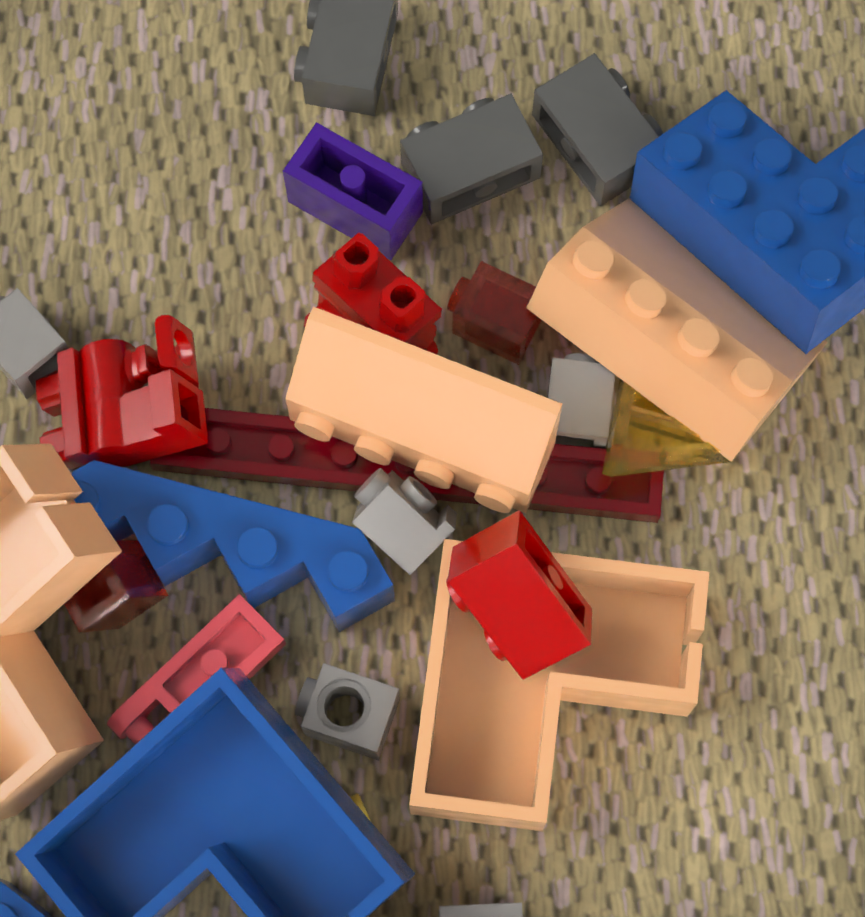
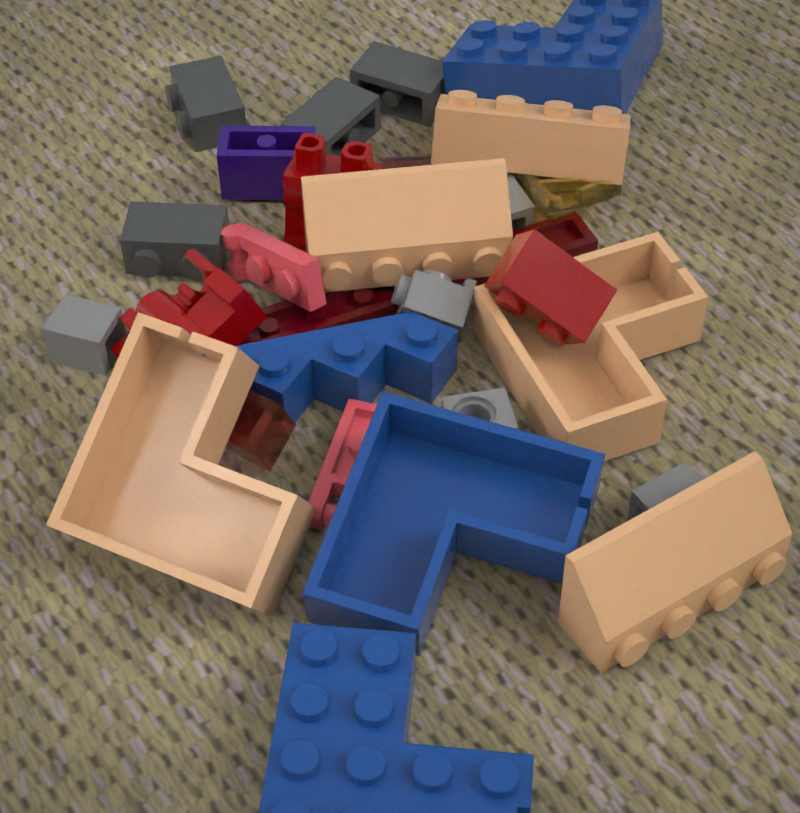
camera: 30 degrees left, 25 degrees down
(191, 253) = (161, 233): none -> dark grey brick
(260, 362) = (274, 266): none -> coral plate

